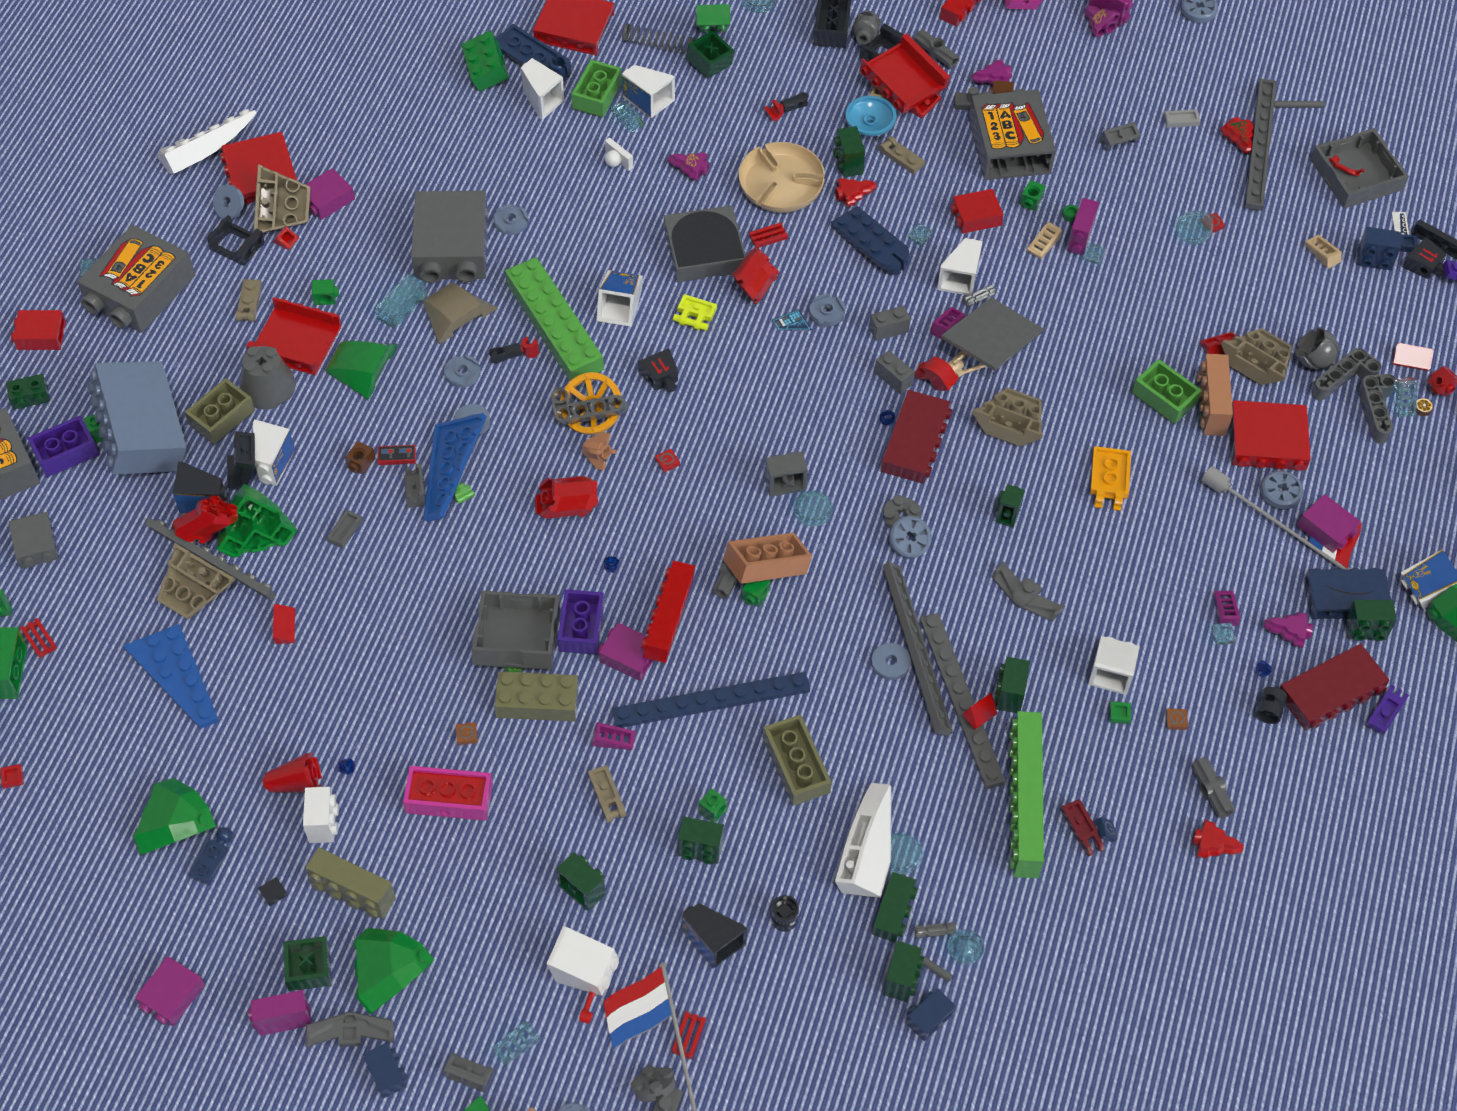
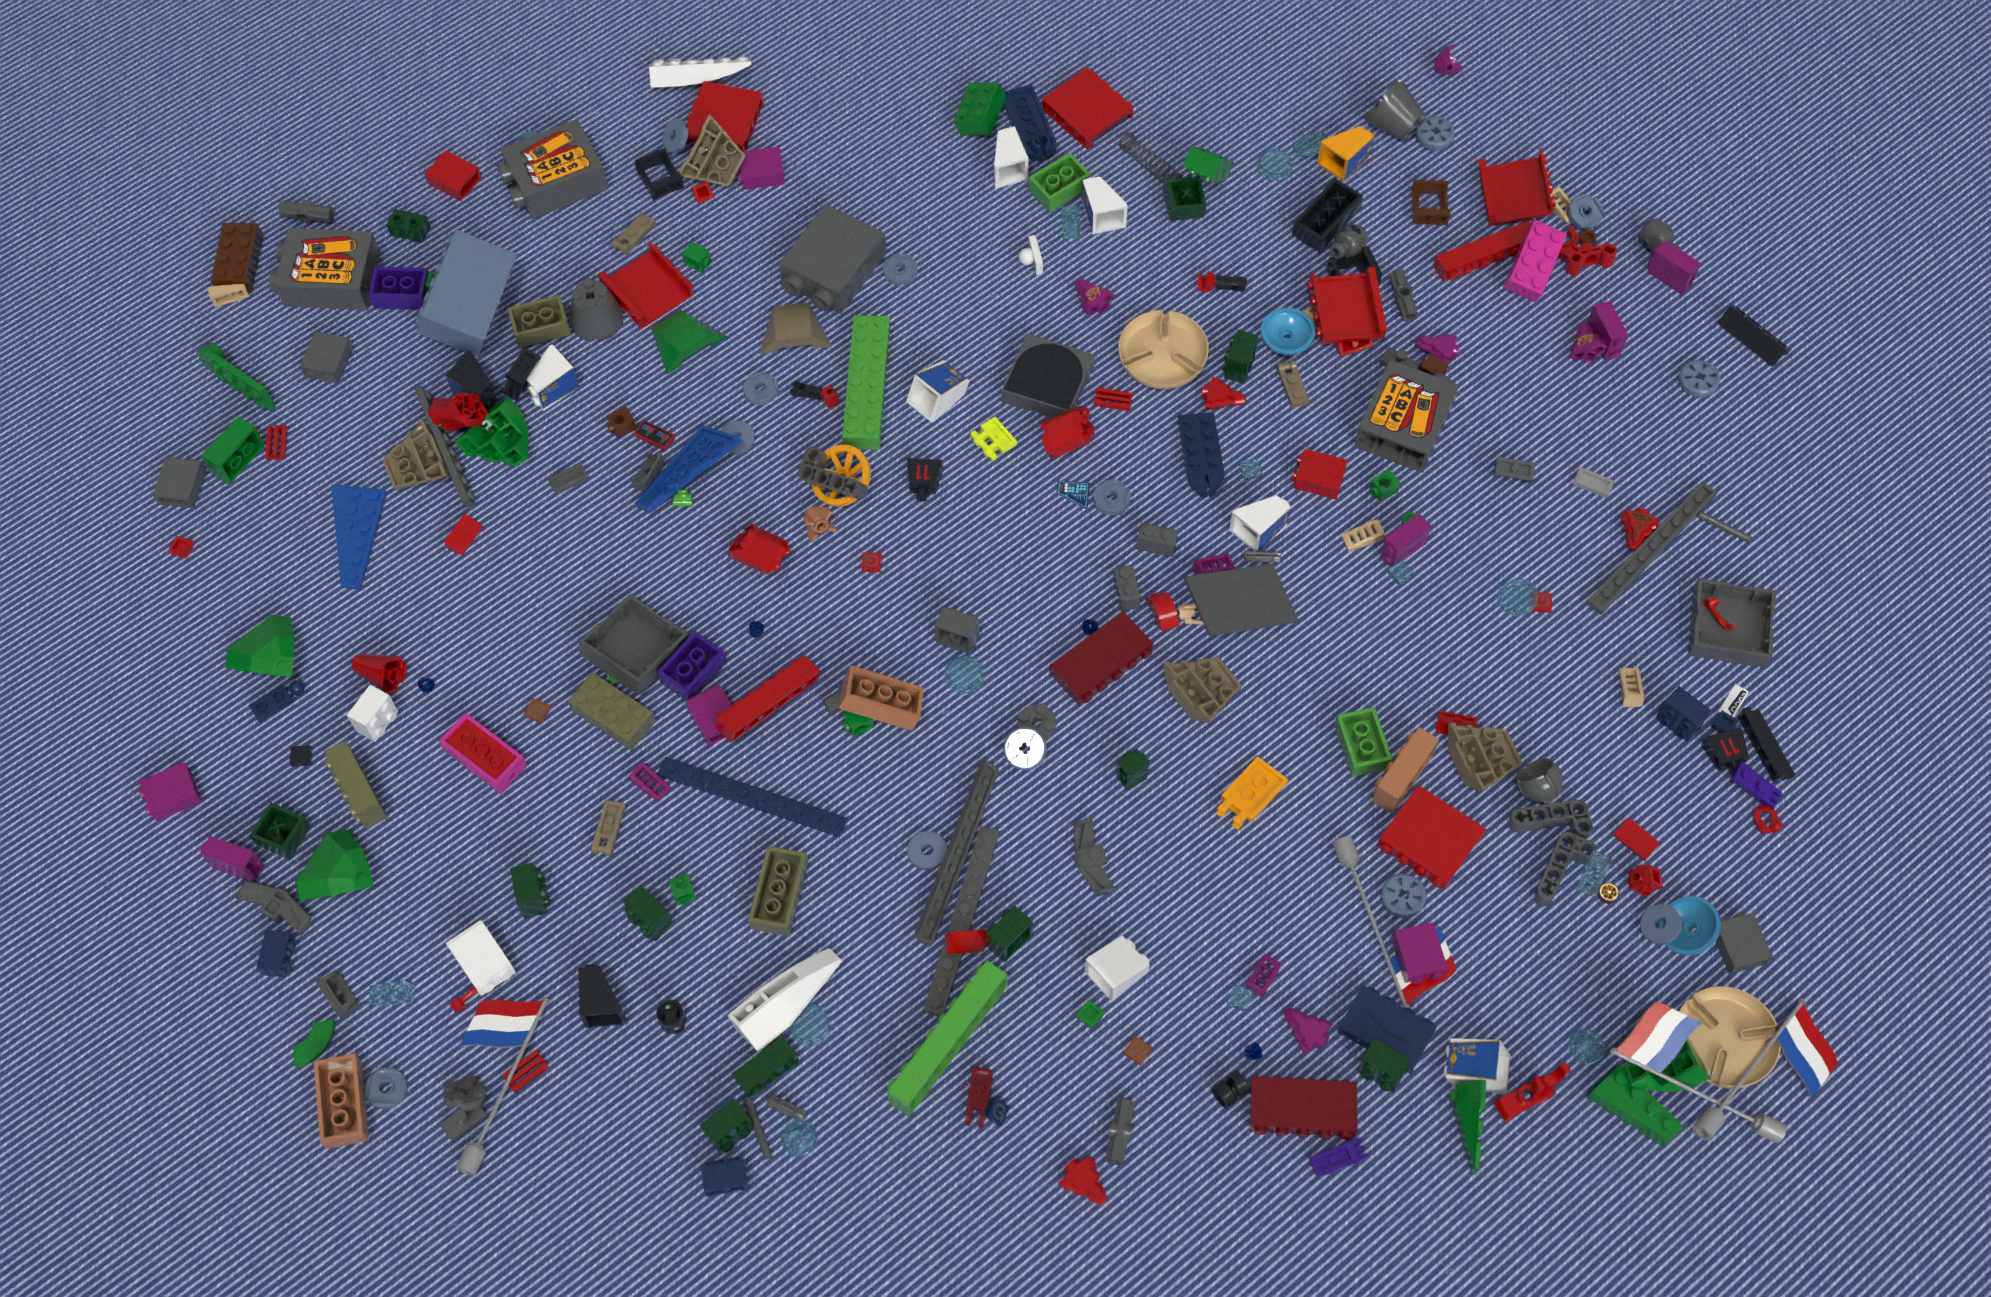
camera: 35 degrees right, 5 degrees up
(401, 301) = (753, 298): clear light blue brick -> none

